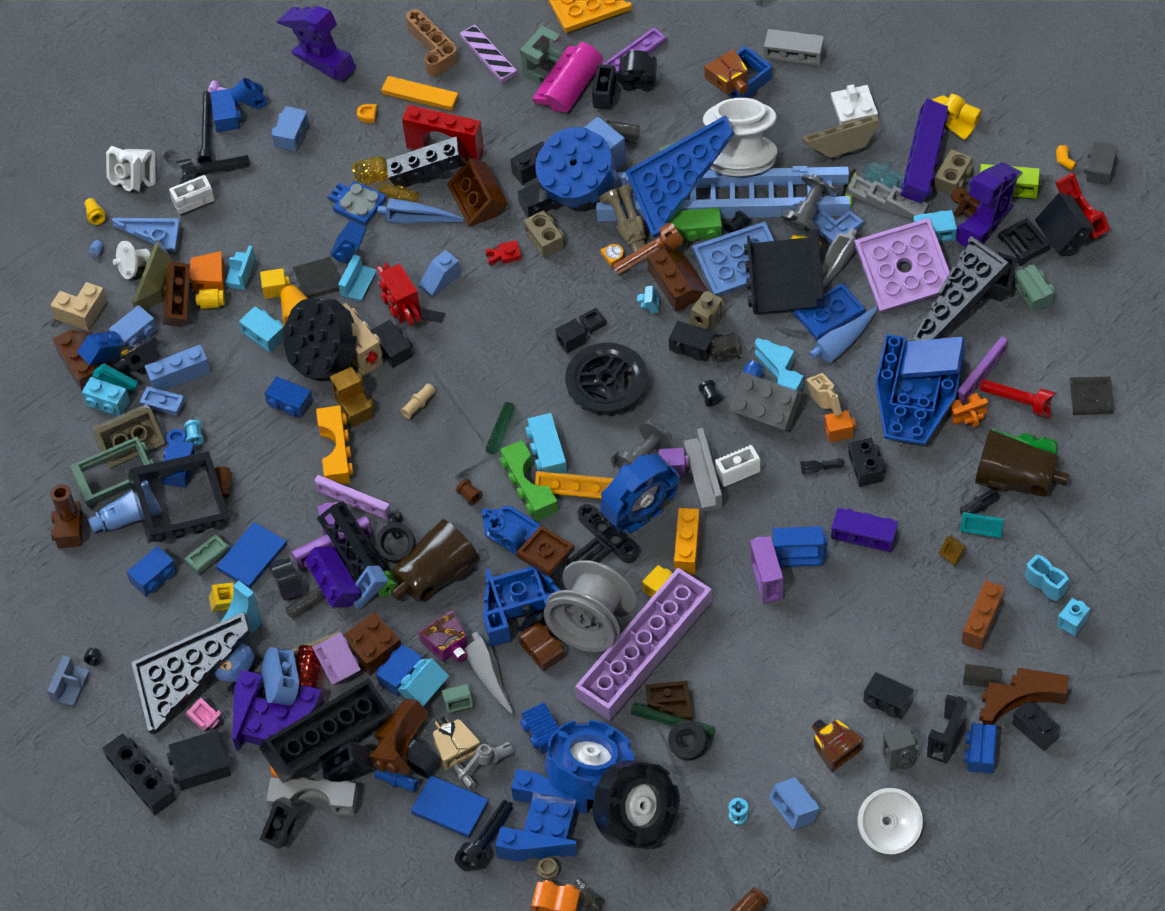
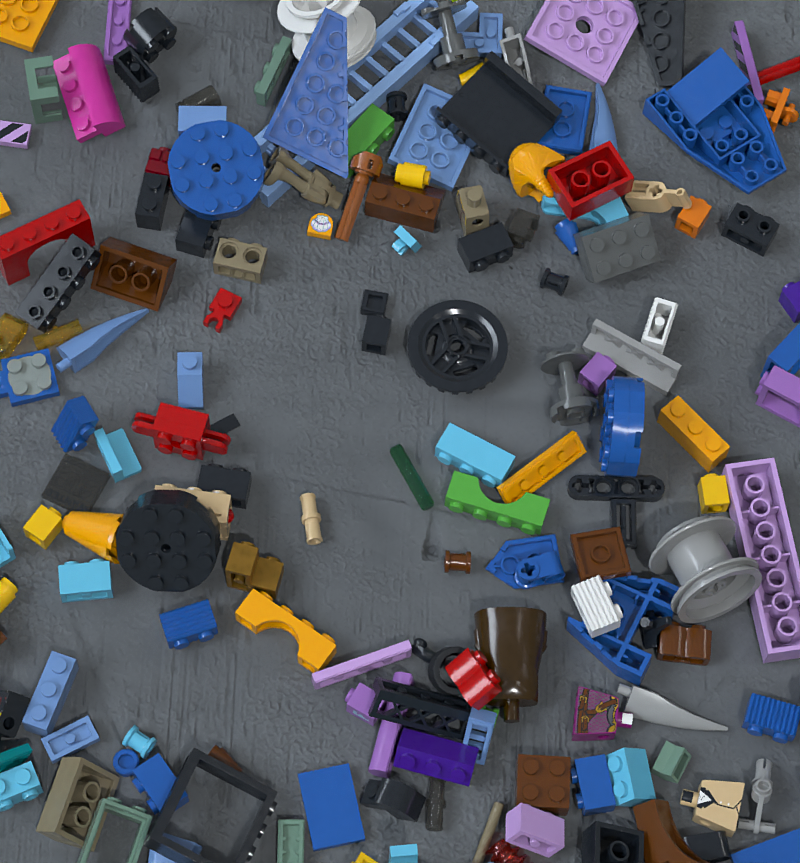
camera: 55 degrees left, 10 degrees up
(394, 549) = (474, 678): none -> red brick
(505, 572) = (596, 606): none -> white brick
(694, 265) = (412, 175): none -> yellow brick
(764, 308) = (527, 169): none -> light orange piece
(788, 347) = (590, 180): none -> red brick
(813, 465) = (710, 271): black piece -> none

